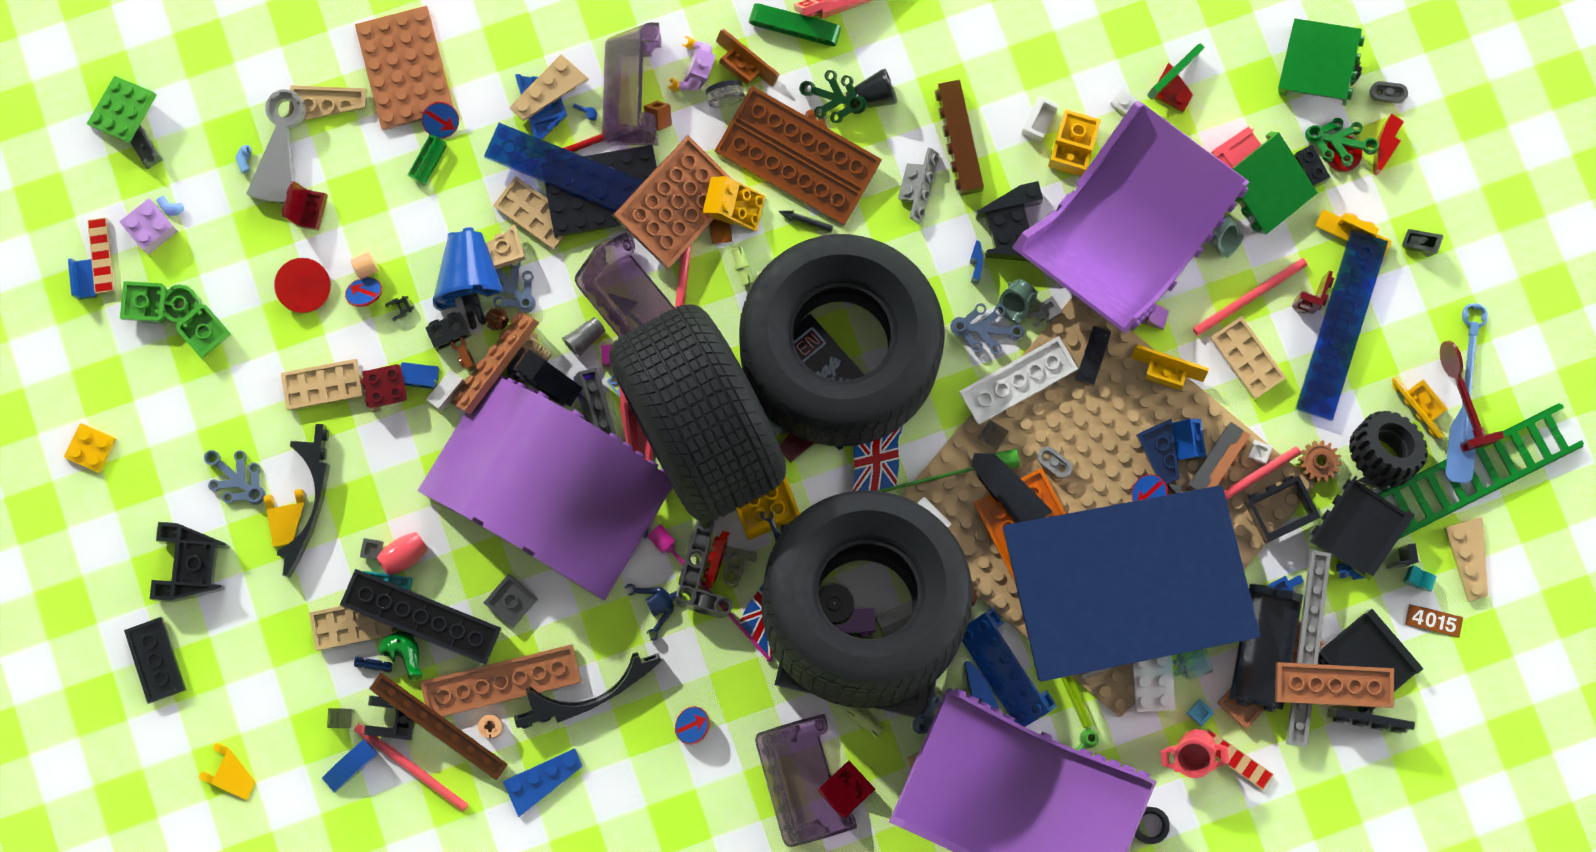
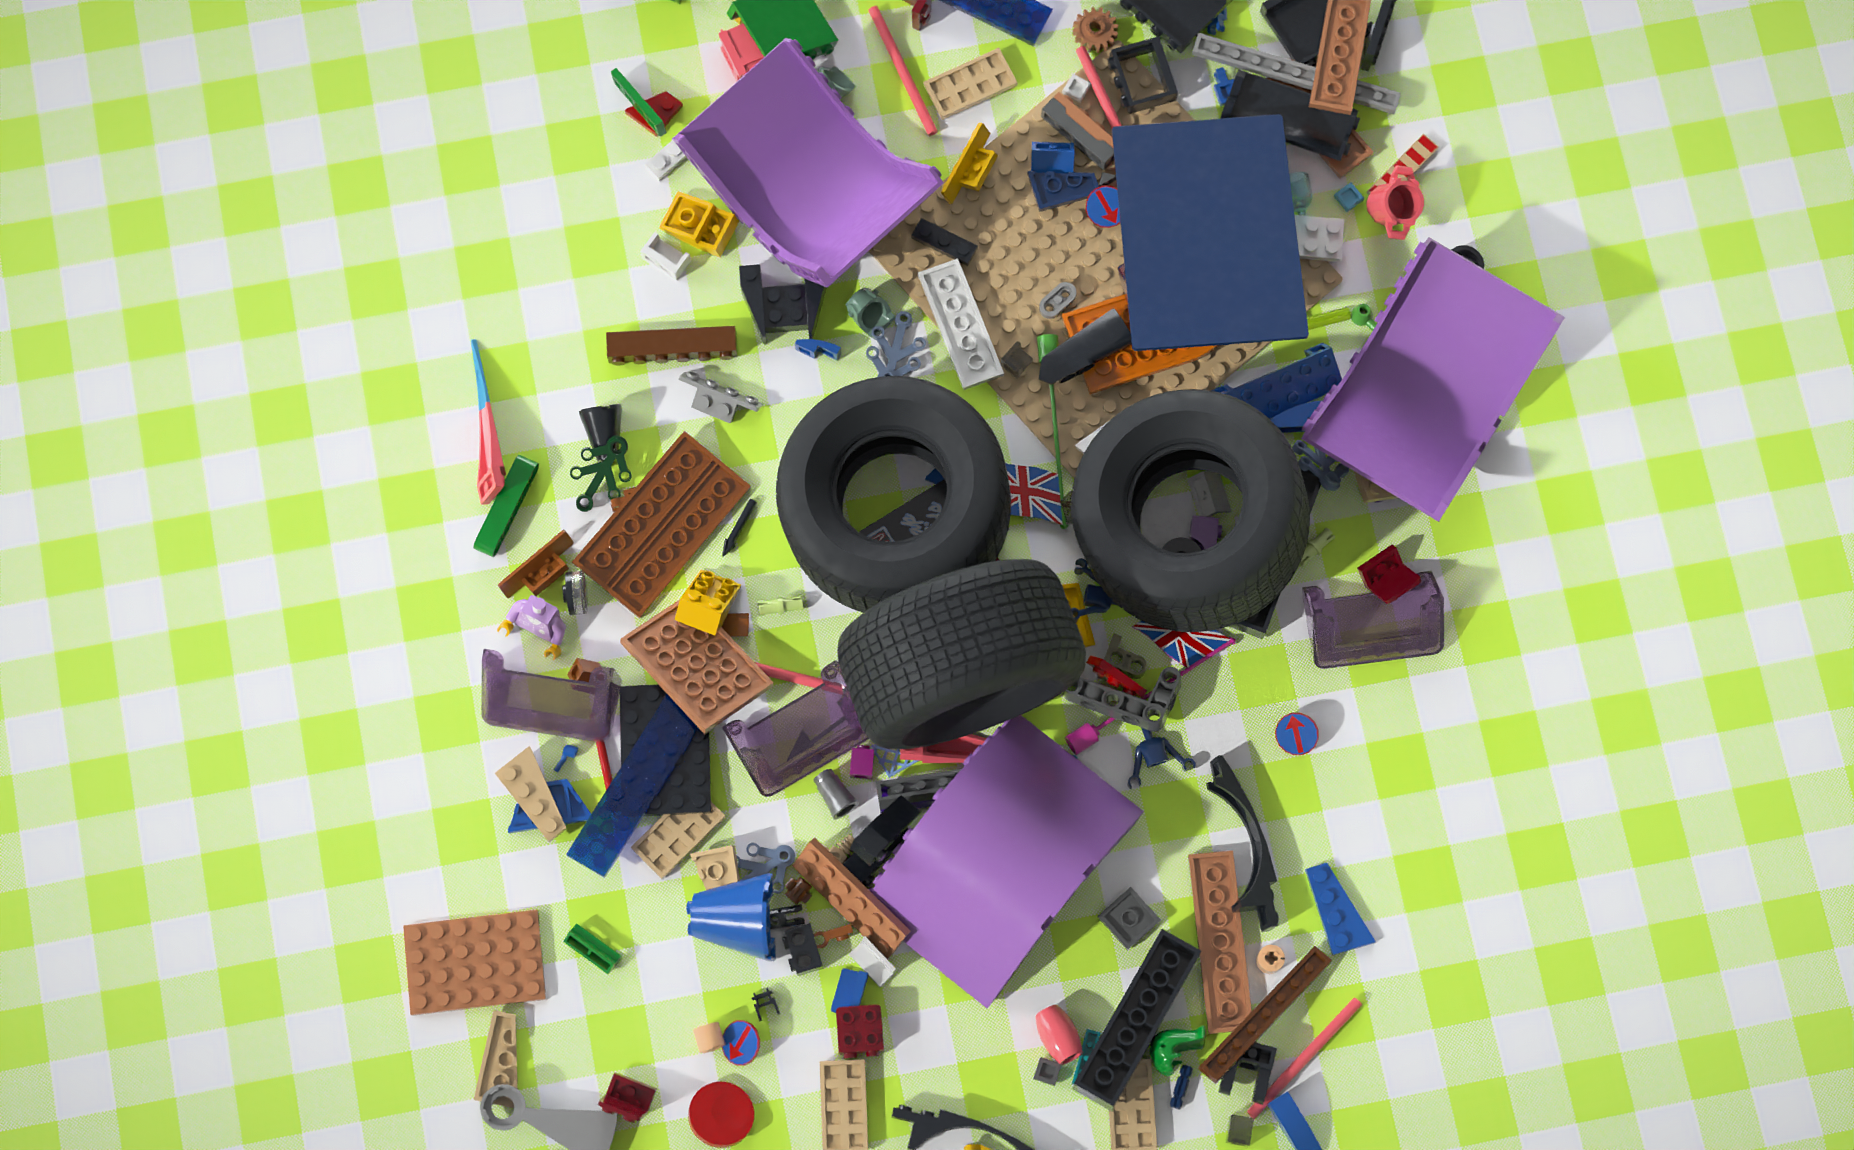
camera: 80 degrees left, 5 degrees down
(440, 119) = (547, 926): blue piece -> none
(1047, 310) = (885, 282): light grey plate -> none

